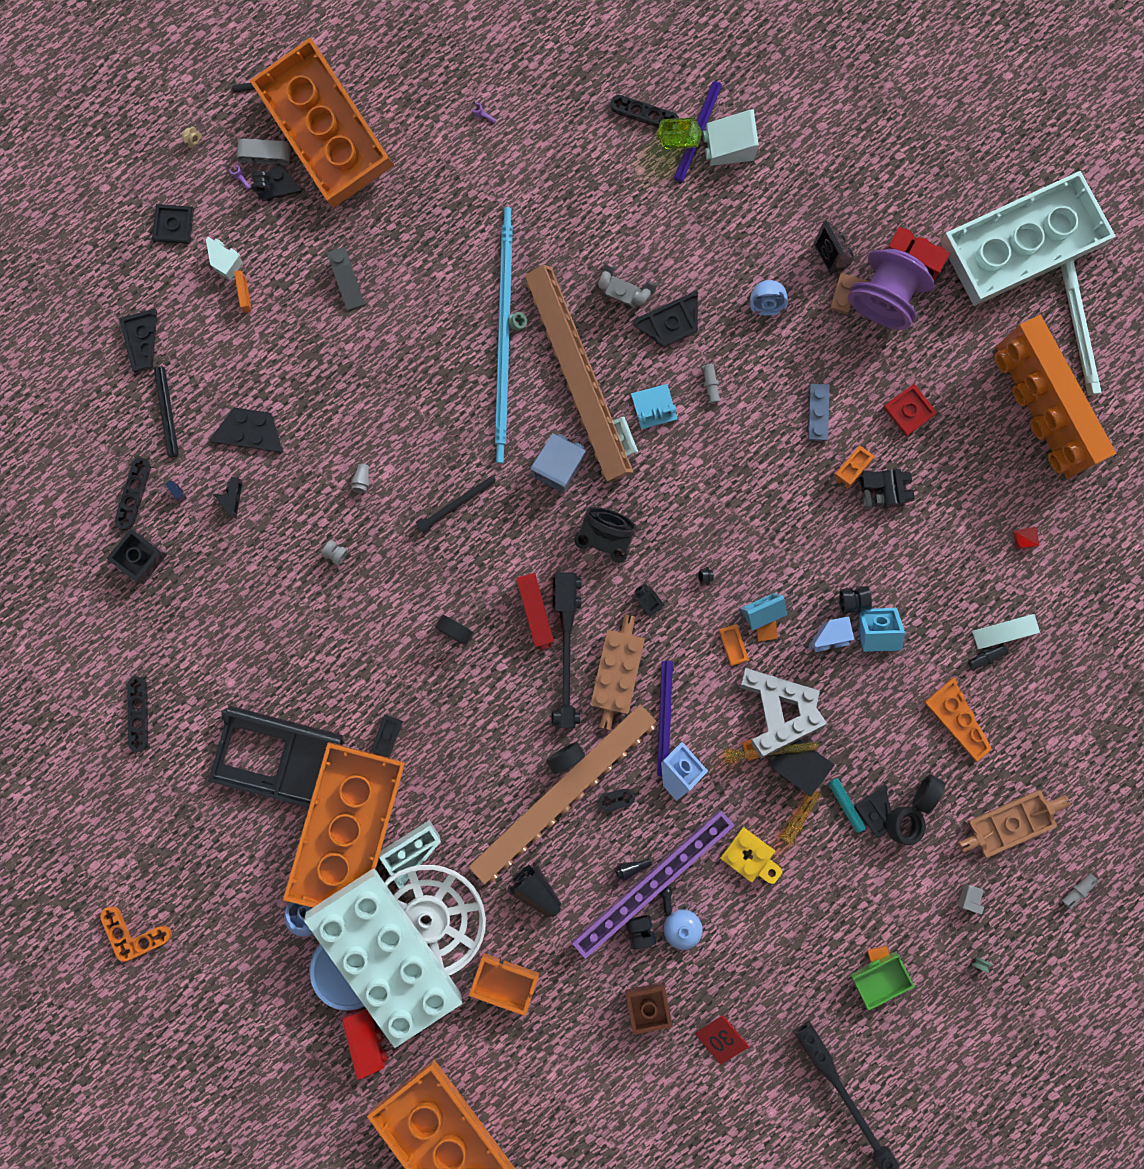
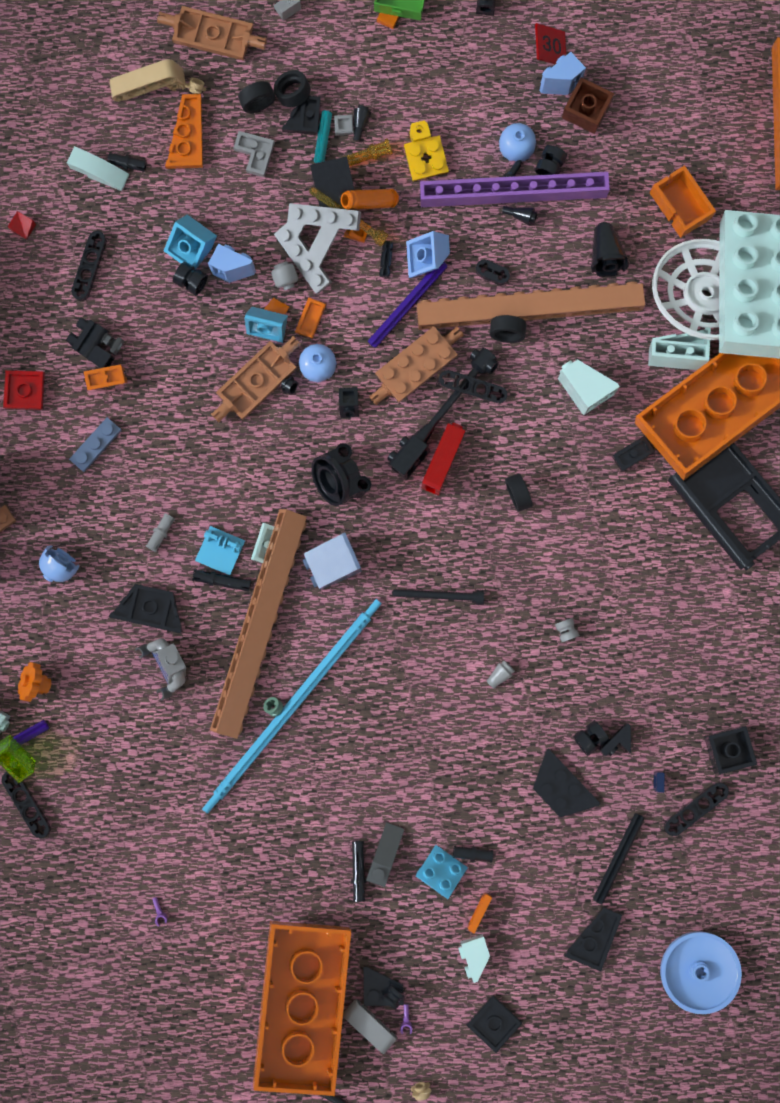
camera: 140 degrees left, 0 degrees up
(41, 373) = (700, 972): none -> light blue dish
(253, 483) = (584, 740): none -> black wheel
(280, 330) = (473, 854): none -> black pin
(294, 299) = (441, 872): none -> medium azure hinge
(353, 247) = (358, 890): none -> black pin
(465, 758) = (586, 385): none -> light aqua slope
(558, 688) = (472, 385): none -> black beam
(634, 384) = (221, 580): none -> black pin
(688, 1017) = (563, 76): none -> light blue slope
(698, 612) = (317, 362): none -> light blue cylinder
(711, 741) = (386, 258): none -> black axle
(712, 198) = (32, 682): none -> orange plant
(735, 559) = (256, 380): none -> nougat plate
(764, 778) = (369, 199): none -> orange axle
(782, 662) = (284, 275): none -> light grey head
(829, 847) = (361, 117): none -> black cone
(838, 830) = (343, 125): none -> light grey tile
(891, 753) = (258, 149): none -> light grey plate
(947, 547) = (89, 266): none -> black beam
(987, 766) = (195, 86): none -> tan plate
(1029, 738) = (147, 79): none -> tan beam

